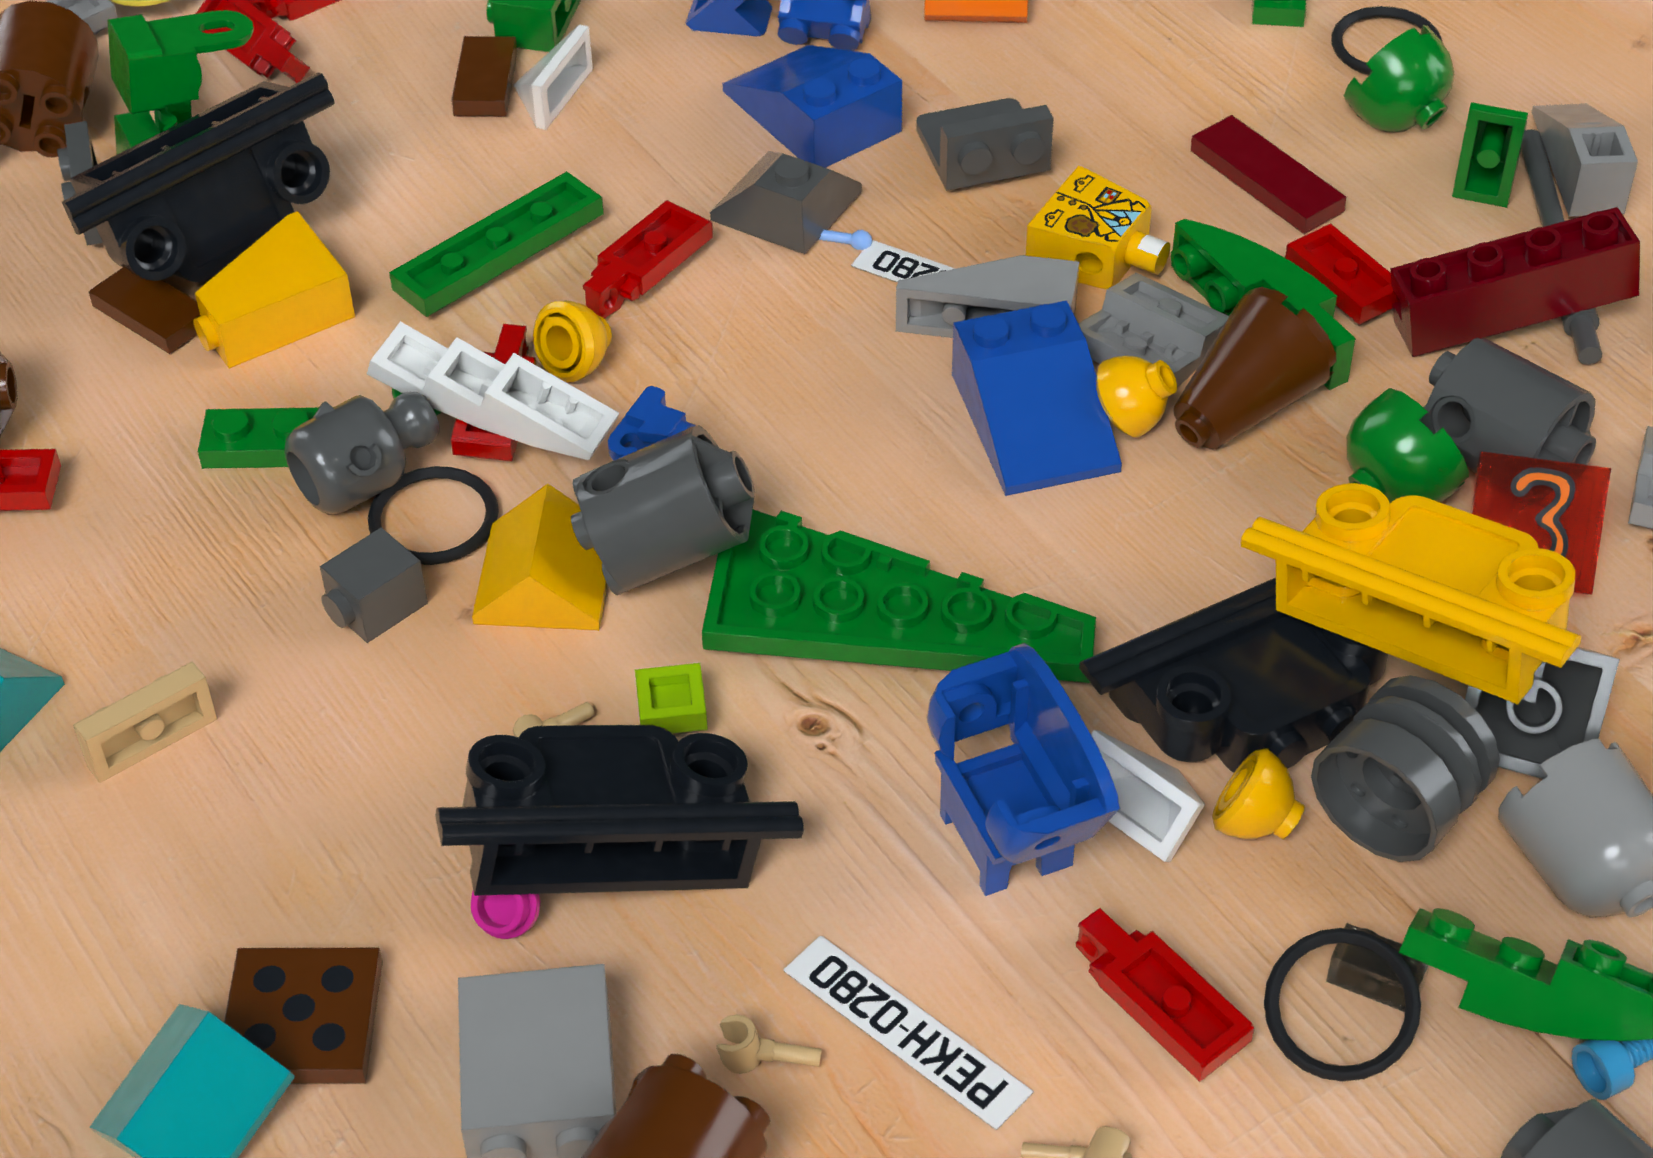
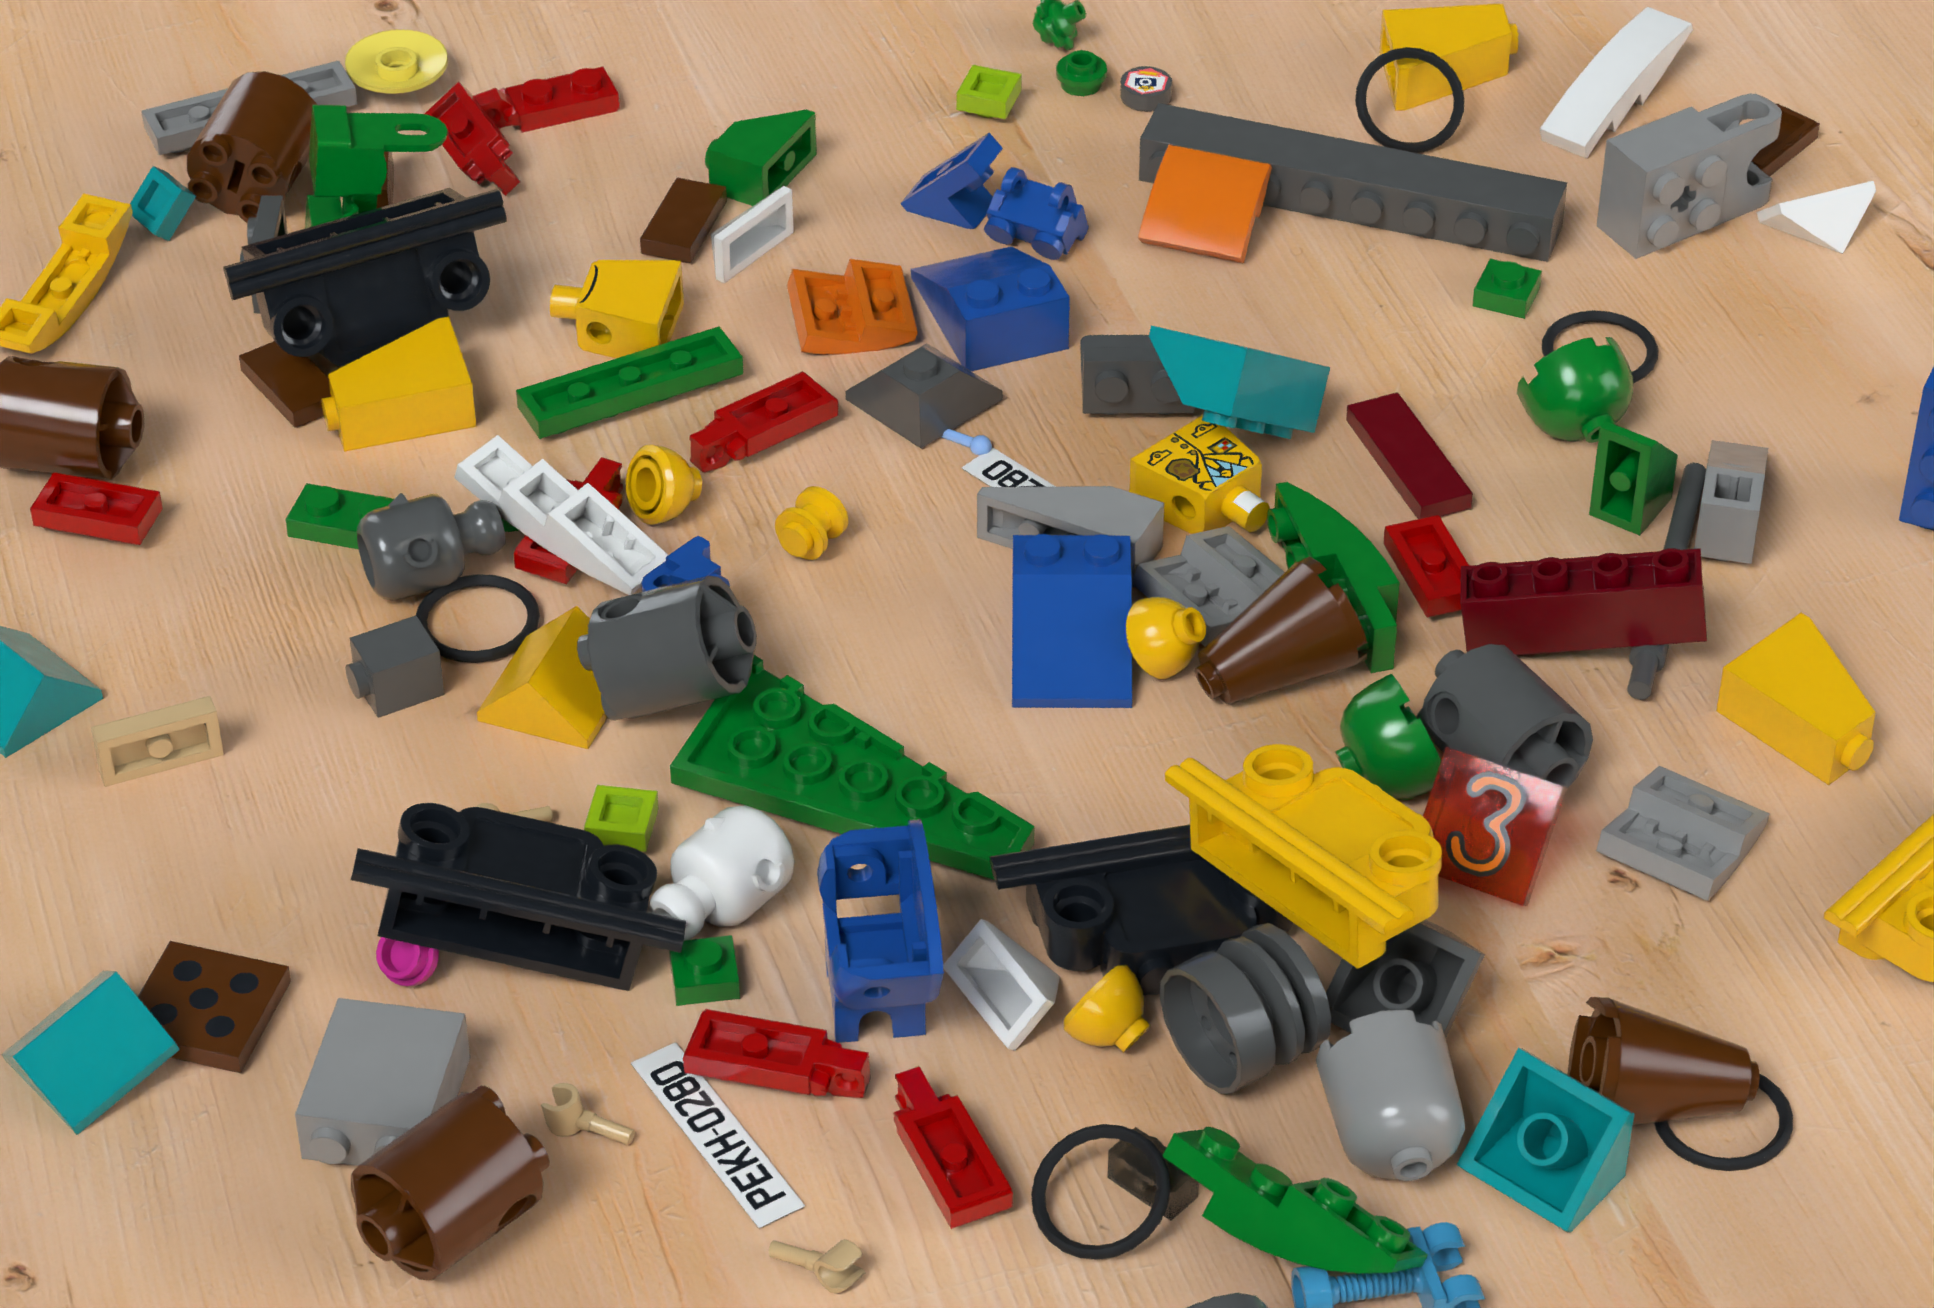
camera: 15 degrees right, 5 degrees down
(461, 170) = (623, 305): none -> yellow torso
(683, 133) = (853, 311): none -> orange slope
(737, 349) = (809, 525): none -> yellow wheel
(808, 734) = (726, 870): none -> white piece
(825, 851) = (705, 971): none -> green plate
(938, 929) = (774, 1056): none -> red hinge
(1107, 130) = (1242, 384): none -> teal slope

